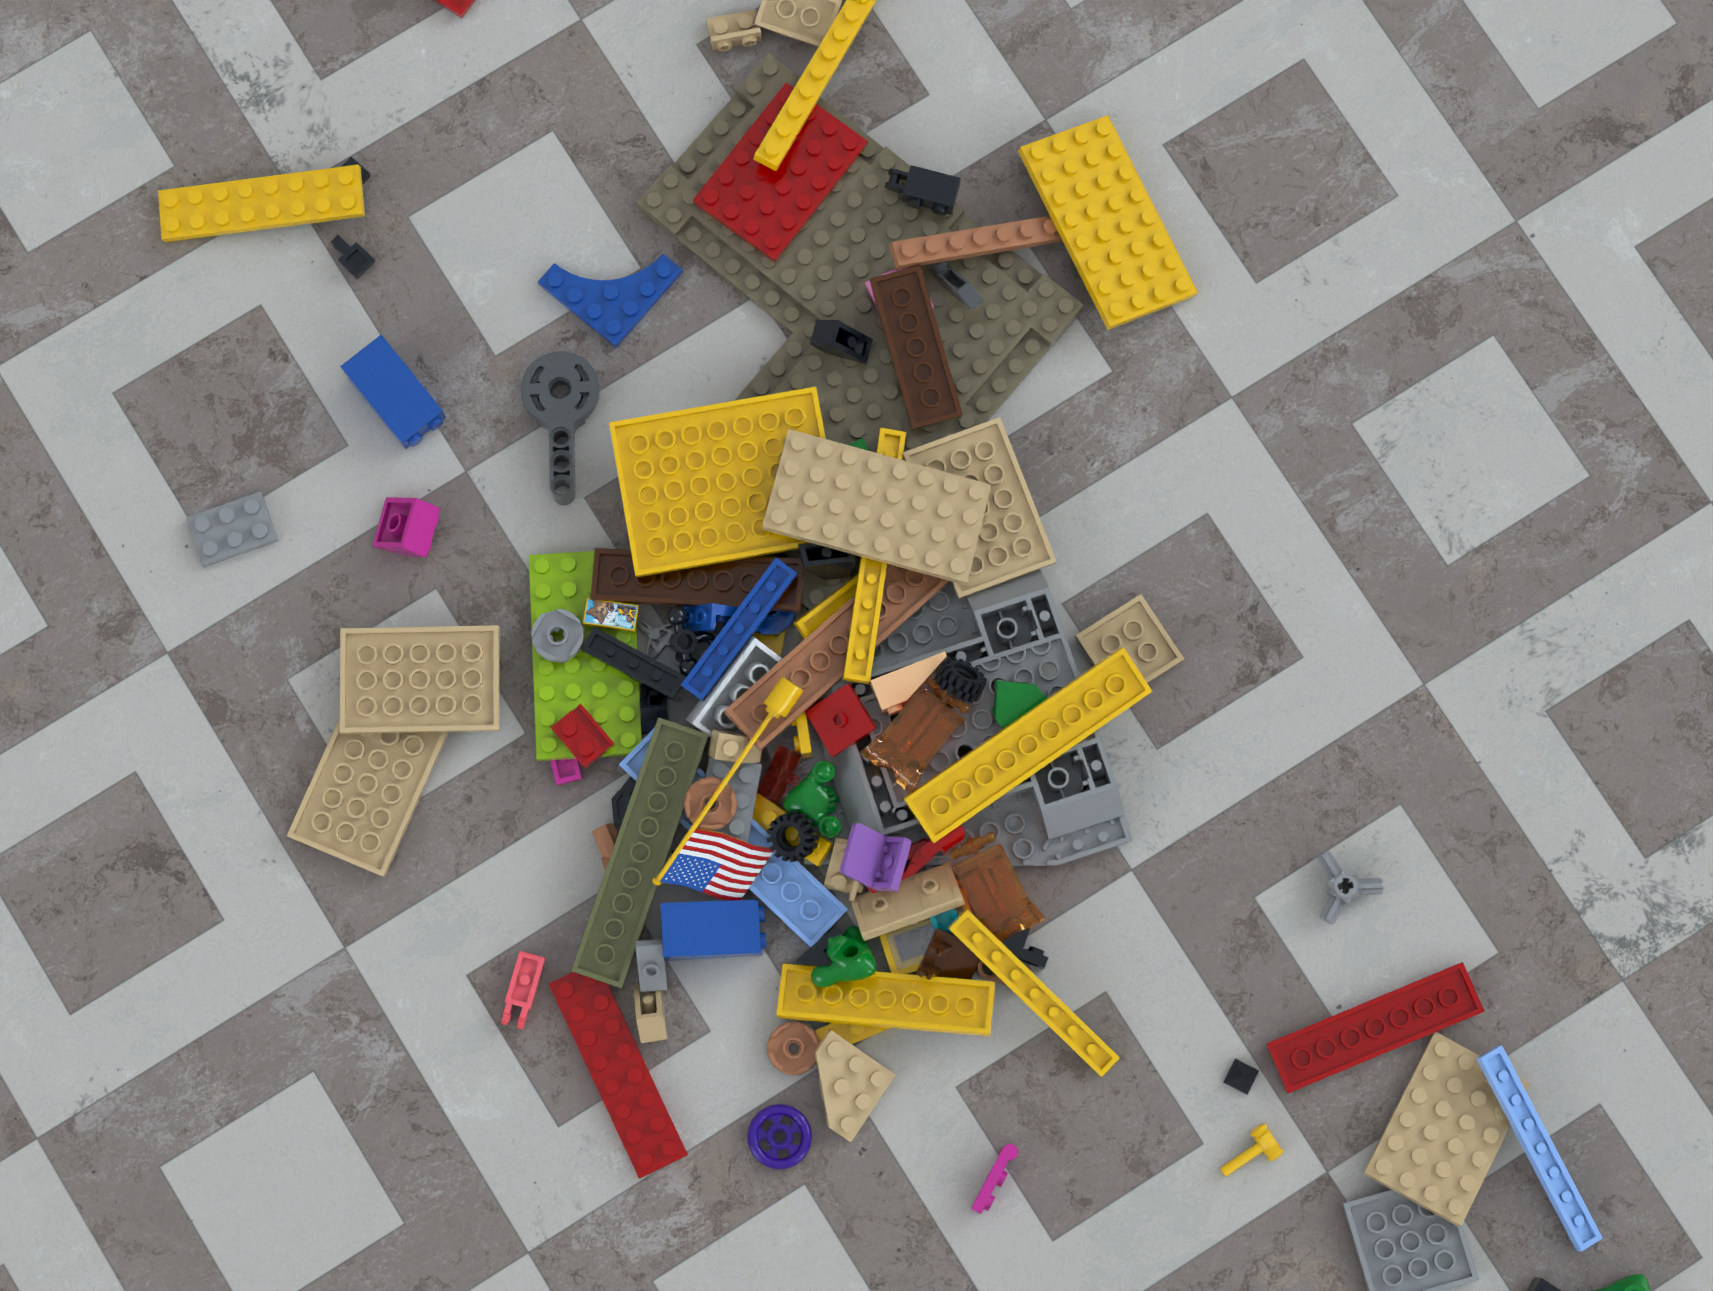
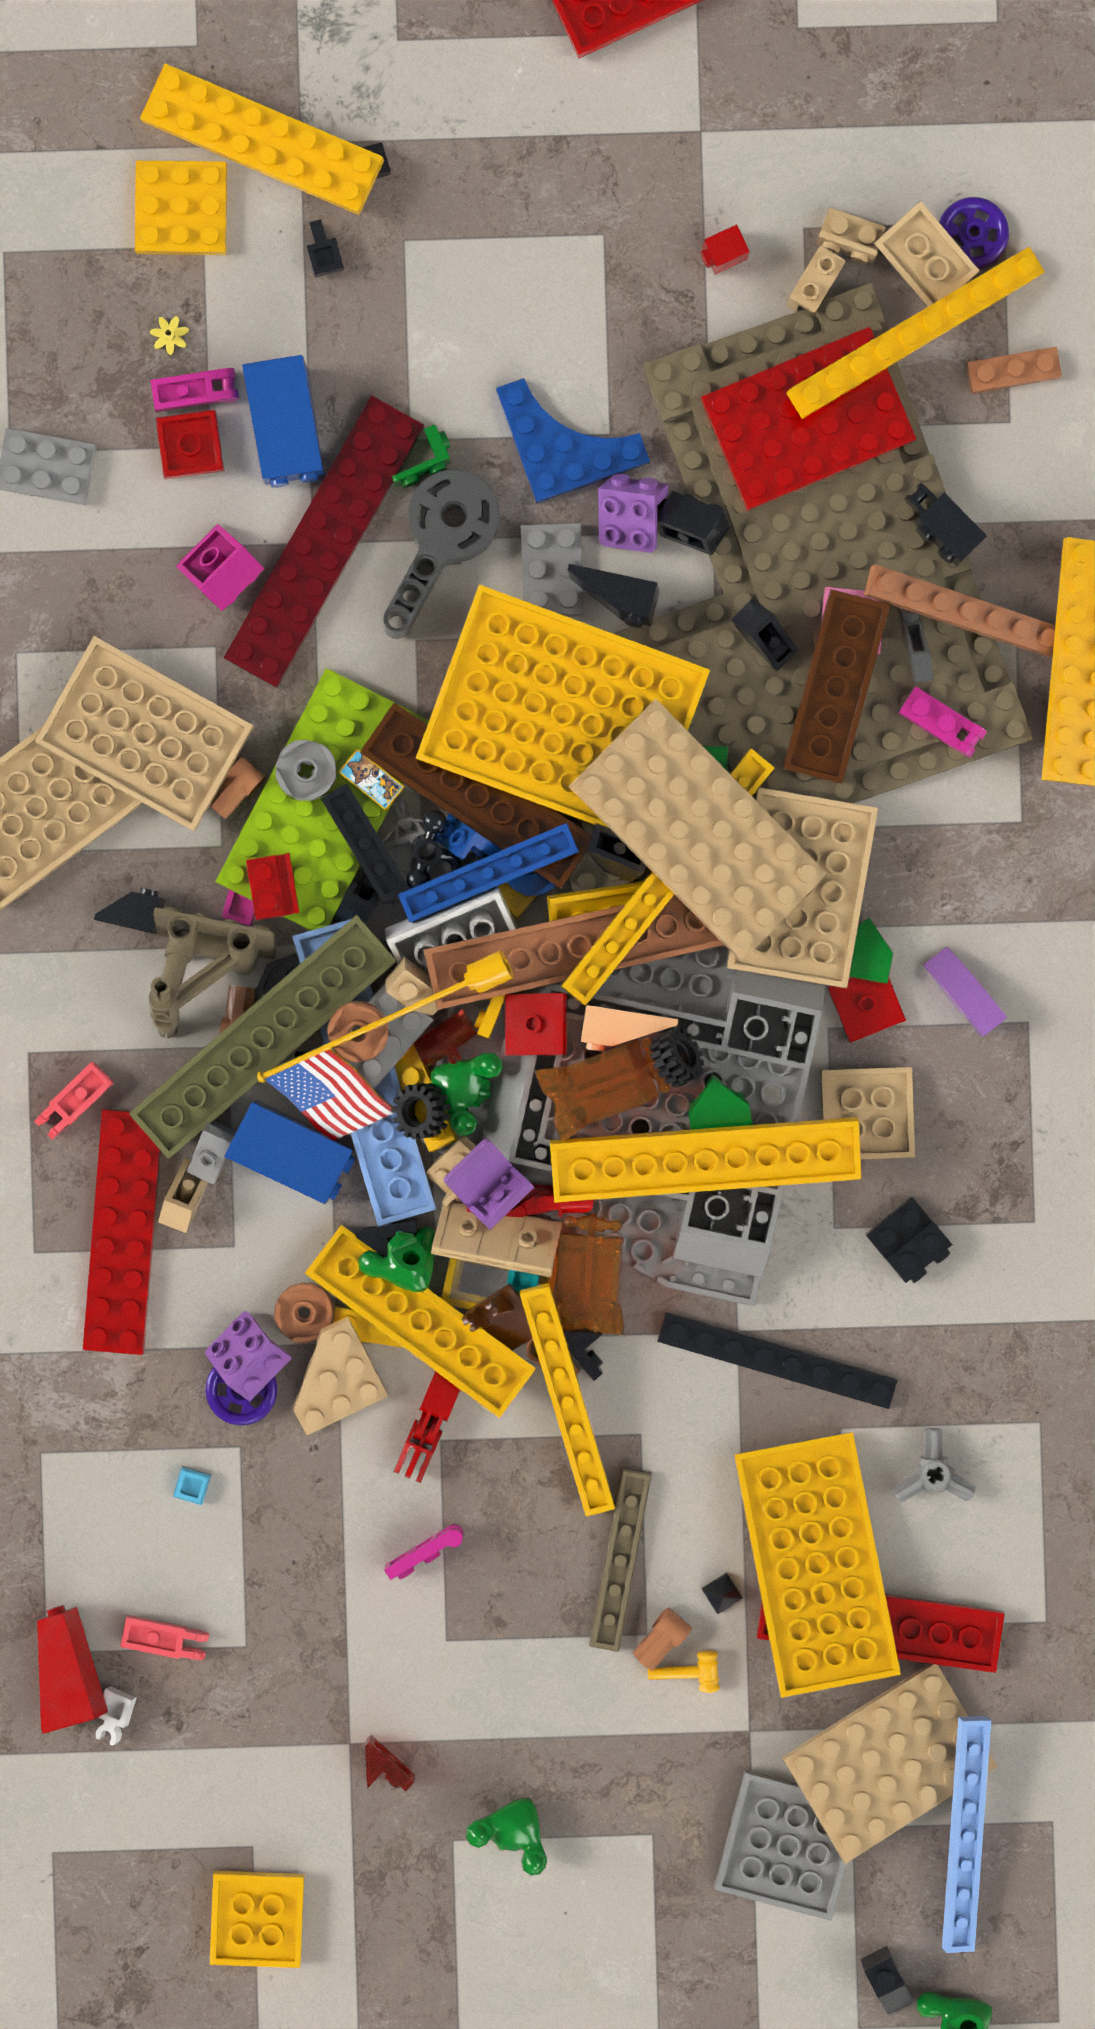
camera: 30 degrees right, 10 degrees up
(228, 286) = (181, 207): none -> yellow plate
(274, 385) = (174, 338): none -> light yellow plant
(312, 410) = (193, 389): none -> dark pink plate
(332, 451) = (190, 444): none -> red plate
(473, 465) = (324, 541): none -> dark red plate
(487, 818) = (133, 911): none -> black slope
(512, 676) = (240, 782): none -> nougat piece
(520, 347) = (439, 443): none -> green bracket
(570, 797) = (194, 935): none -> dark tan plate
(648, 90) = (724, 250): none -> red brick
(654, 383) = (545, 562): none -> light grey plate
(689, 313) = (630, 512): none -> medium lavender bracket
(718, 373) = (624, 596): none -> black slope
(727, 74) = (816, 281): none -> tan bracket
(735, 294) = (691, 522): none -> black brick
(769, 1106) = (246, 1356): none -> medium lavender bracket
(784, 1235) = (192, 1485): none -> medium azure tile
(909, 56) = (1013, 370): none -> nougat plate
(937, 1057) = (439, 1403): none -> red arm
(1009, 330) = (941, 721): none -> dark pink plate
(1060, 529) = (871, 954): none -> green slope
(1079, 568) = (866, 1007): none -> red plate
(1146, 516) = (965, 991): none -> medium lavender slope
(1148, 1096) = (620, 1559): none -> dark tan tile
(1174, 873) = (777, 1360): none -> black plate
(1217, 1131) = (666, 1632): none -> nougat piece
(1218, 724) = (909, 1241): none -> black plate
(1298, 1007) = (817, 1564): none -> yellow plate

